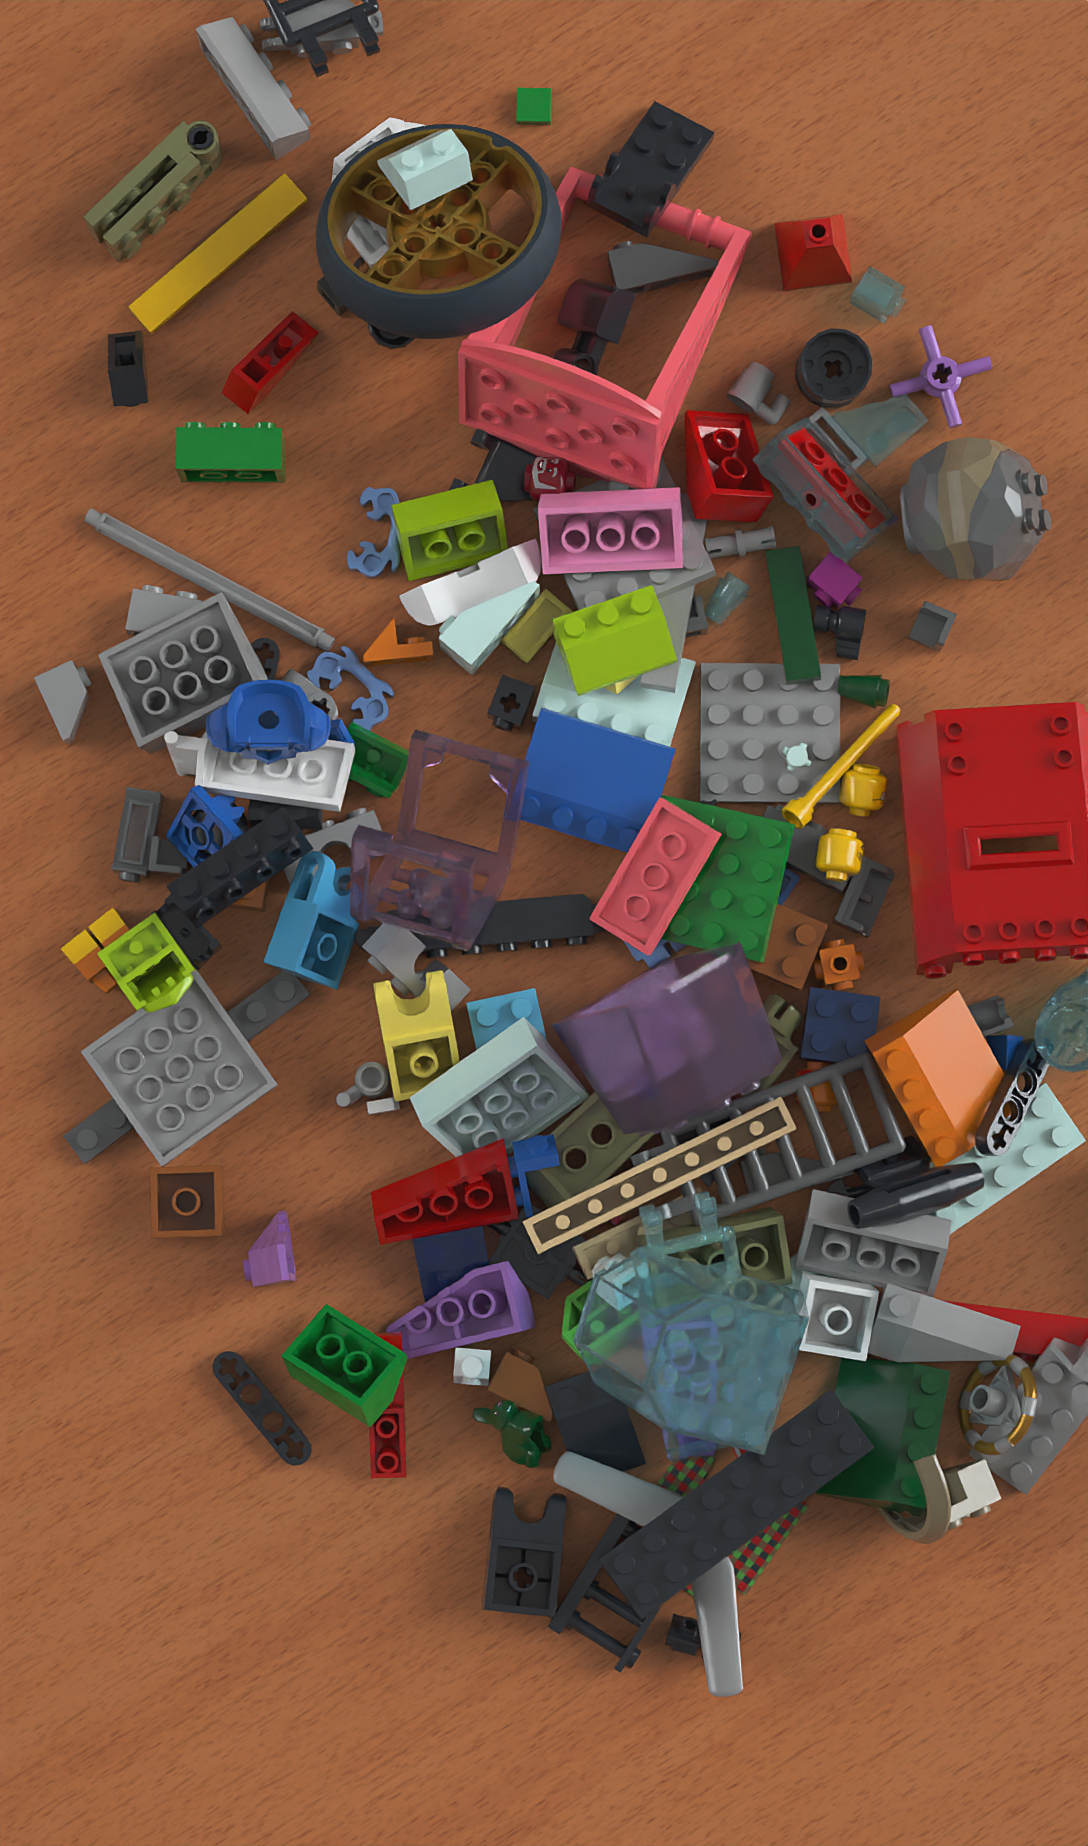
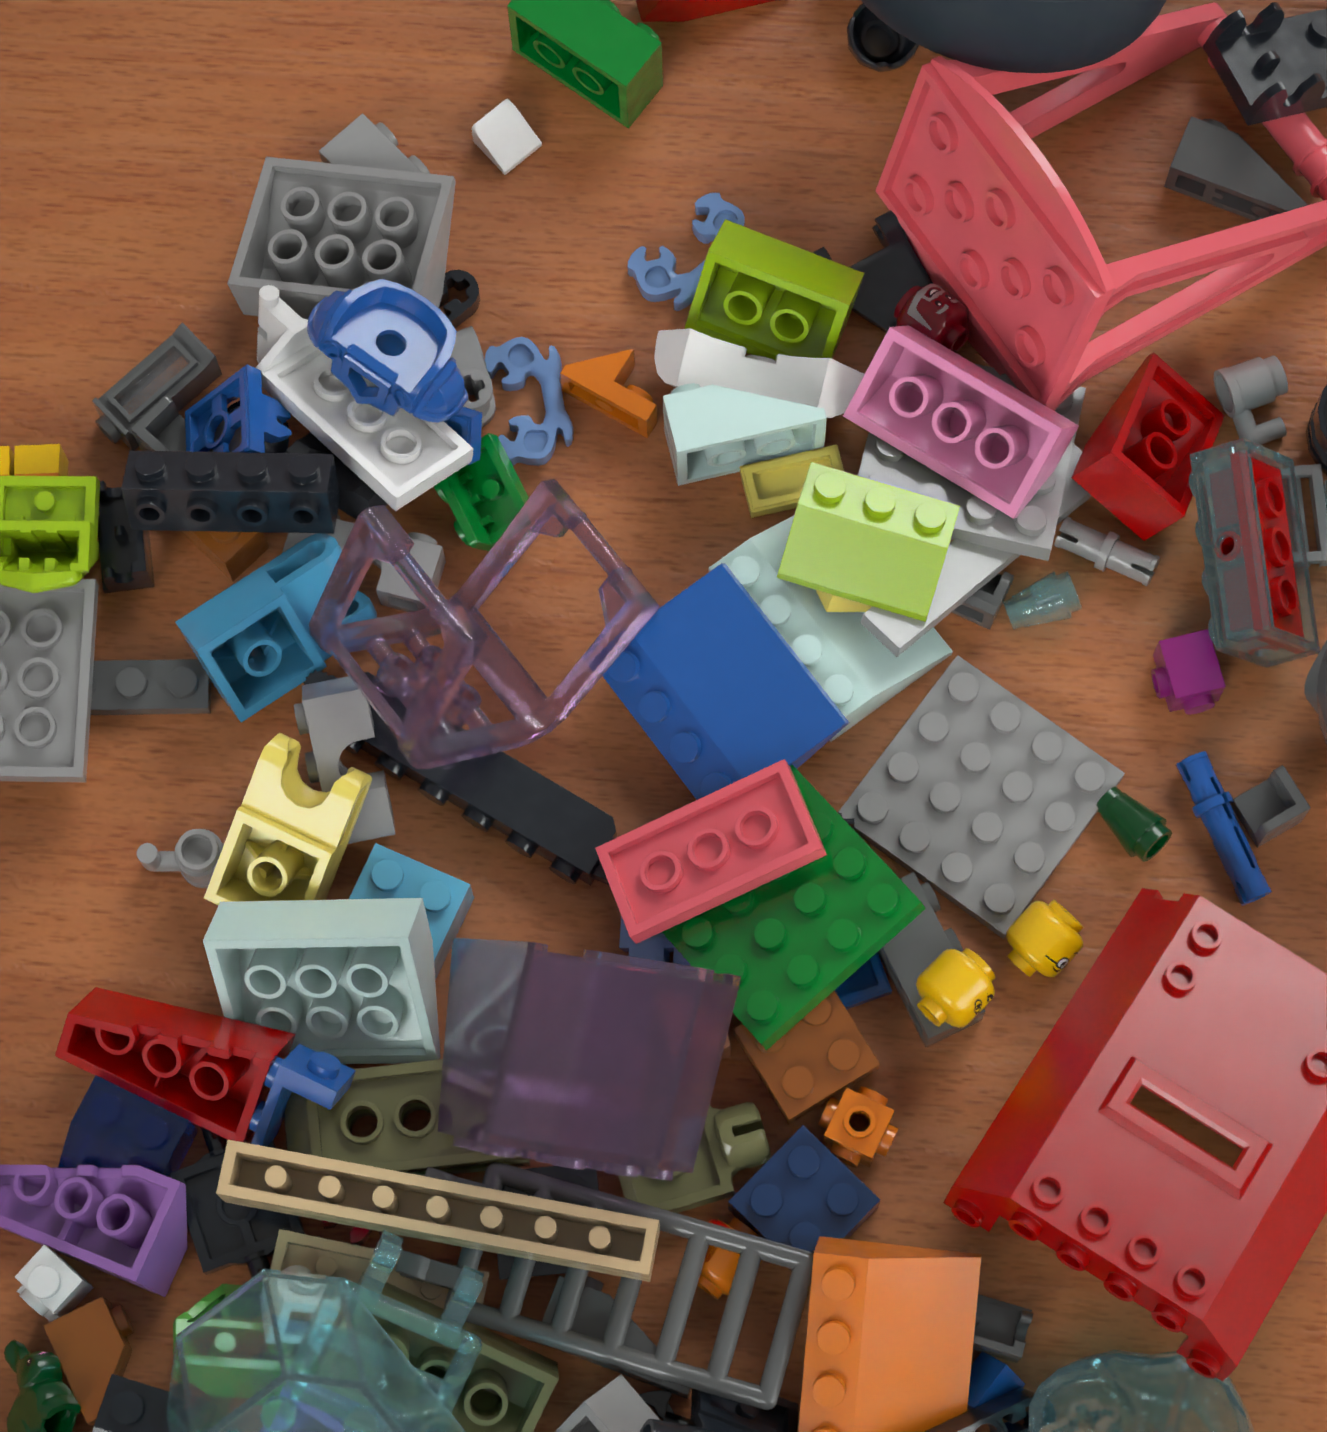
camera: 40 degrees right, 10 degrees down
(65, 697) = (195, 184): light grey slope -> none
(209, 579) = (456, 163): light grey piece -> none
(221, 540) = (505, 136): none -> white slope
(382, 1106) = (190, 899): white piece -> none
(508, 689) = (700, 525): black brick -> none
(598, 316) = (1123, 175): black plate -> none
(793, 615) = (1108, 676): dark green tile -> none
(796, 757) = (990, 841): light aqua piece -> none
(800, 810) = (947, 902): yellow piece -> none
(845, 624) = (1166, 735): black piece -> none
(864, 897) = (951, 1068): dark grey hinge -> none
(908, 652) = (1228, 838): none -> blue pin

